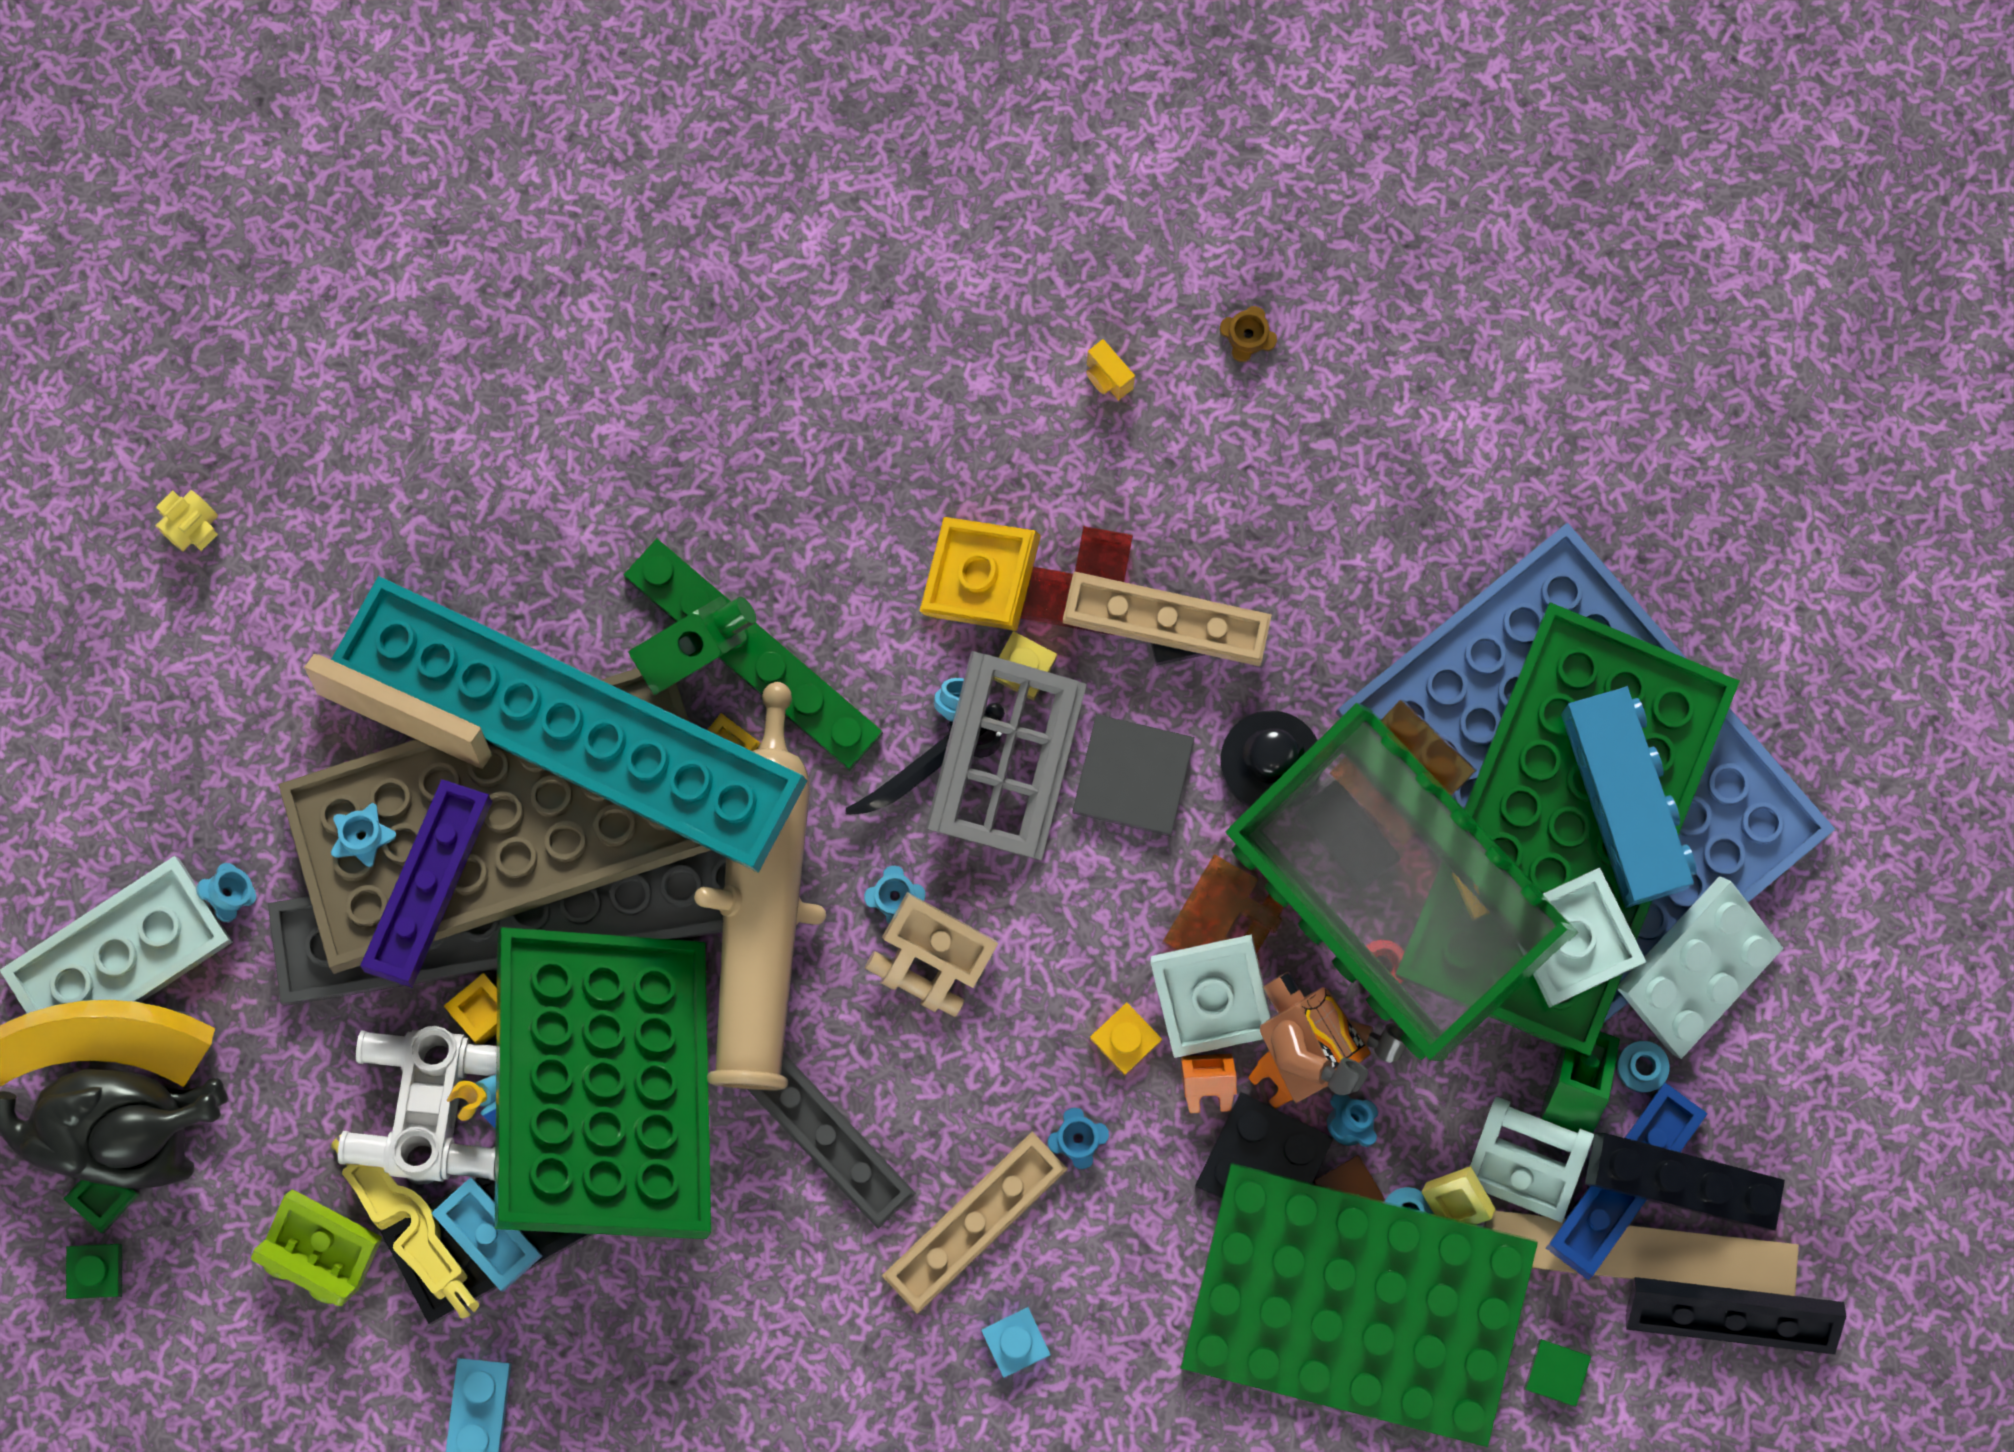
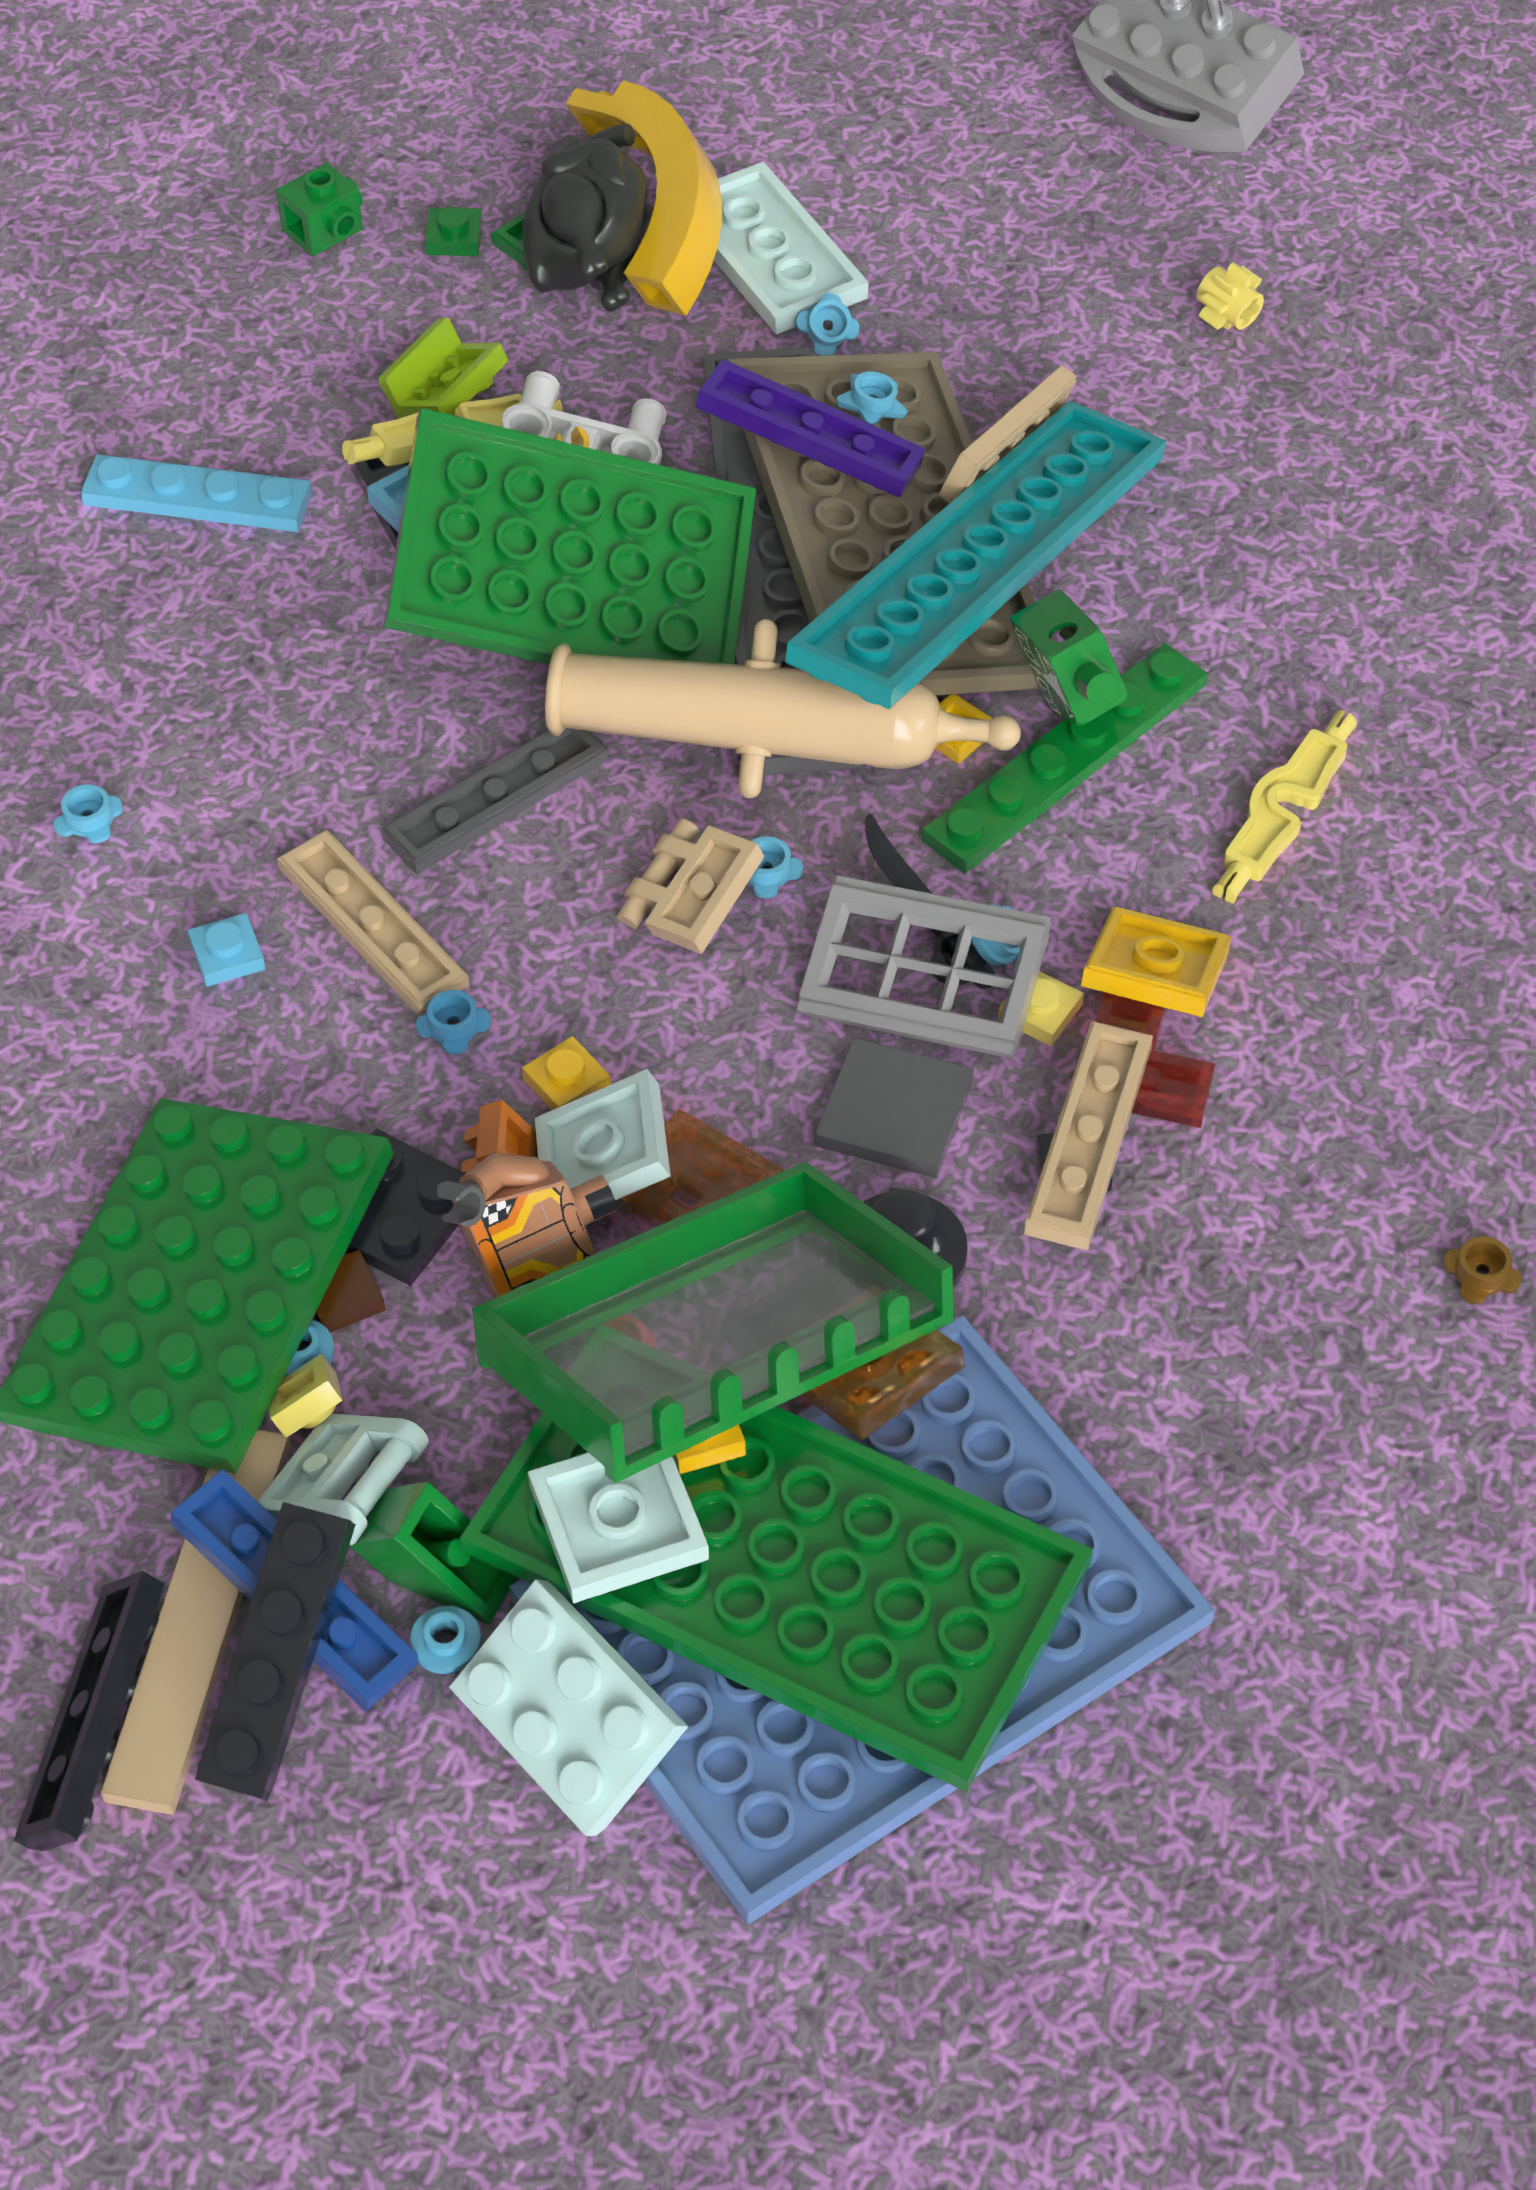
camera: 95 degrees right, 25 degrees down
(100, 1409) = (320, 209): none -> green brick
(818, 488) = (1269, 824): none -> light yellow piece
(1108, 371) = (1423, 1106): yellow plate -> none
(1345, 1128) = (409, 1299): dark azure plate -> none
(1557, 1373) = (65, 1501): green tile -> none
(1628, 796) = (804, 1593): dark azure brick -> none

